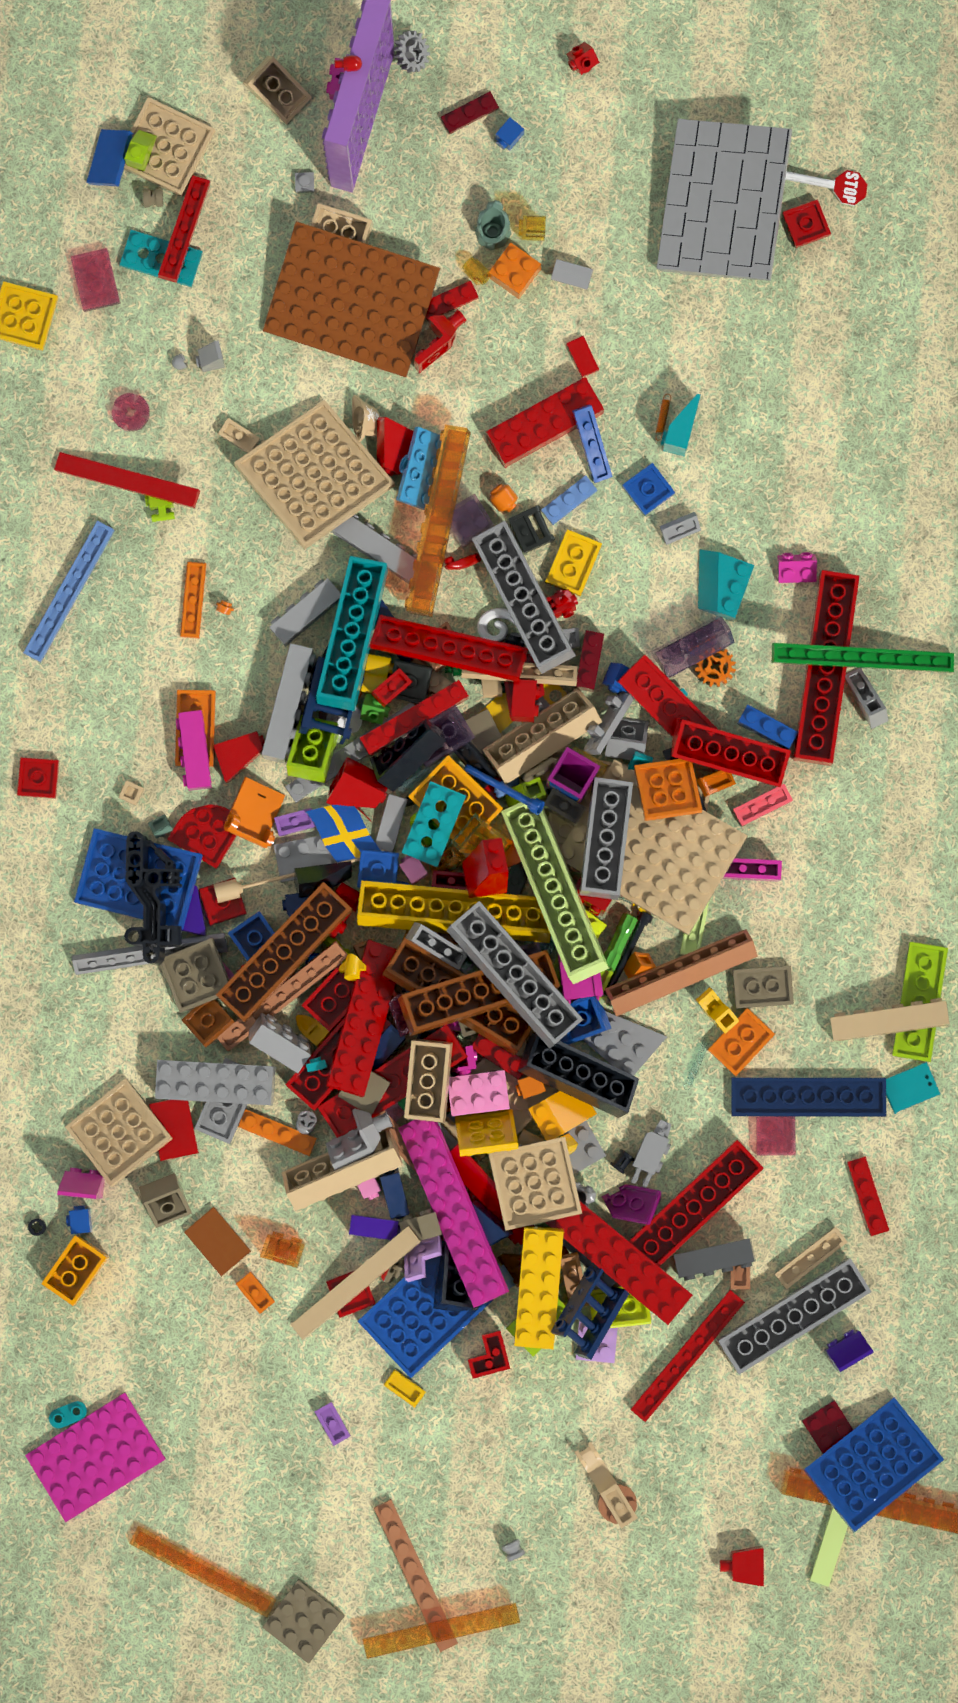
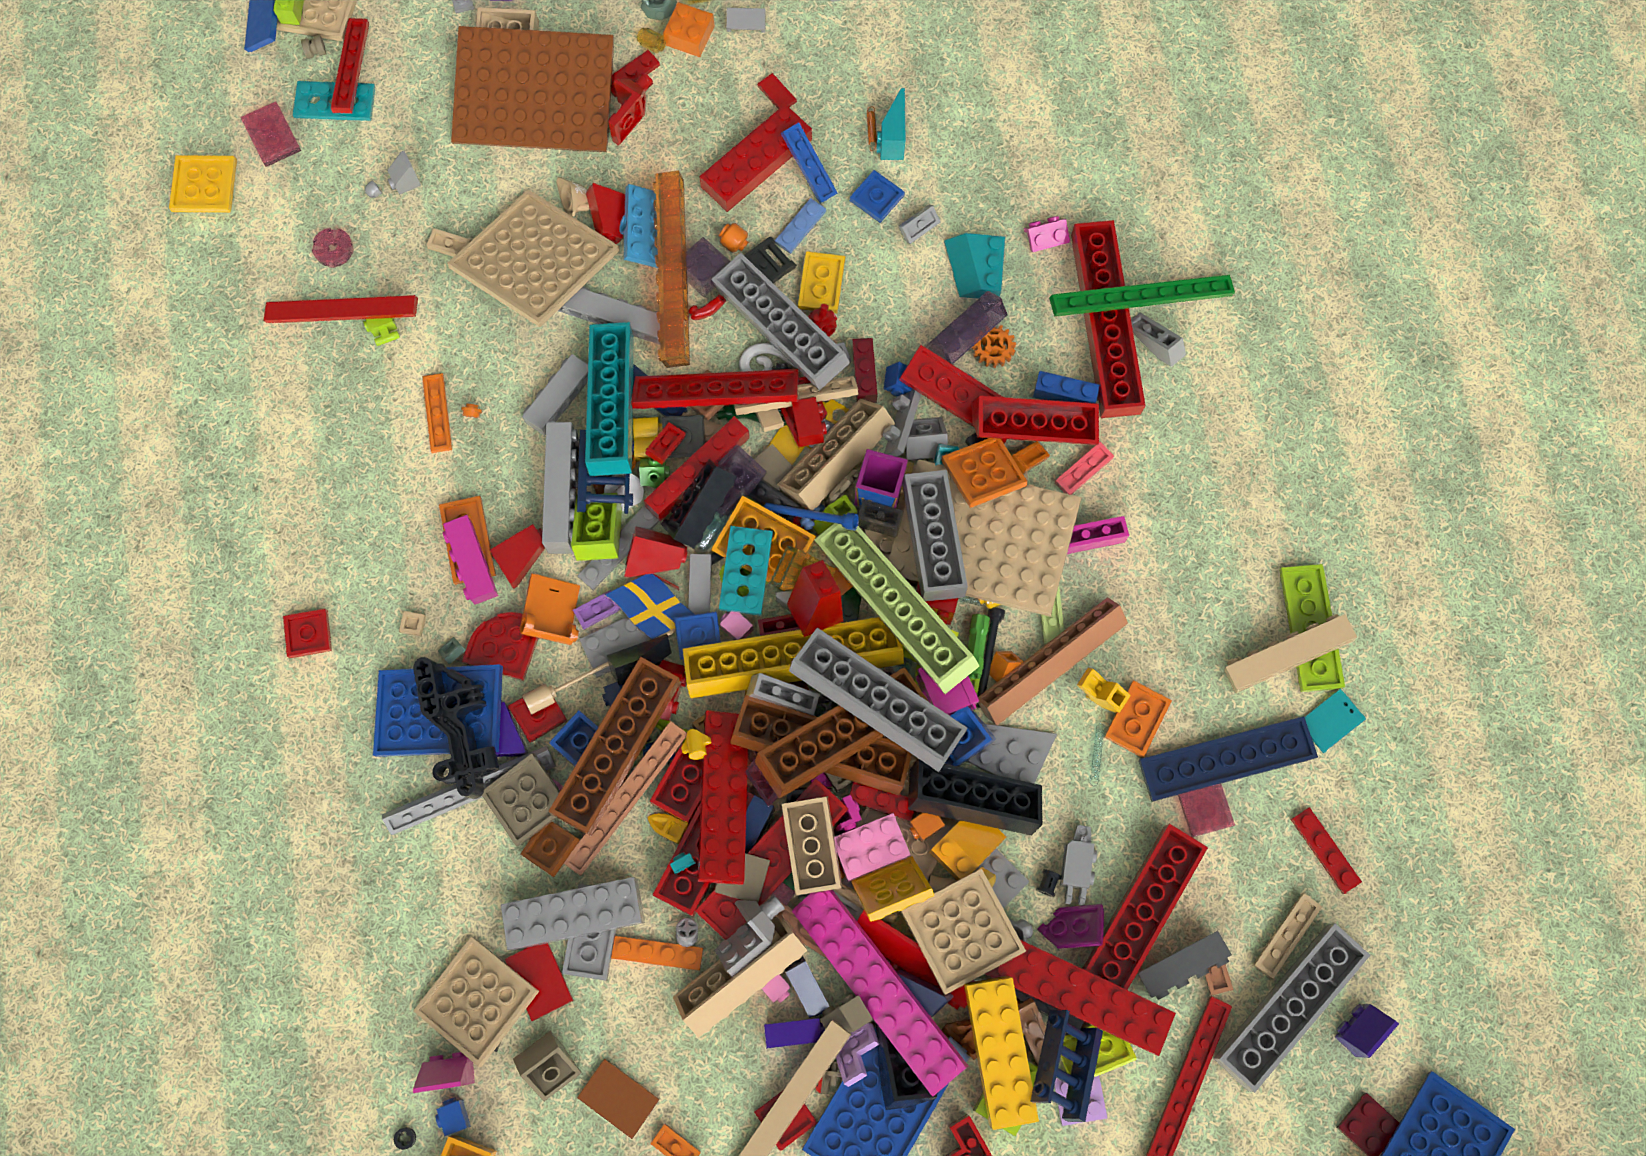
camera: 15 degrees left, 10 degrees down
(69, 591) = (302, 436): medium blue plate -> none
(280, 1042) = (635, 848): light grey brick -> none
(282, 1249) = (695, 1087): clear orange slope -> none
(450, 860) = (774, 604): clear orange slope -> none
(763, 987) = (1143, 654): dark tan plate -> none

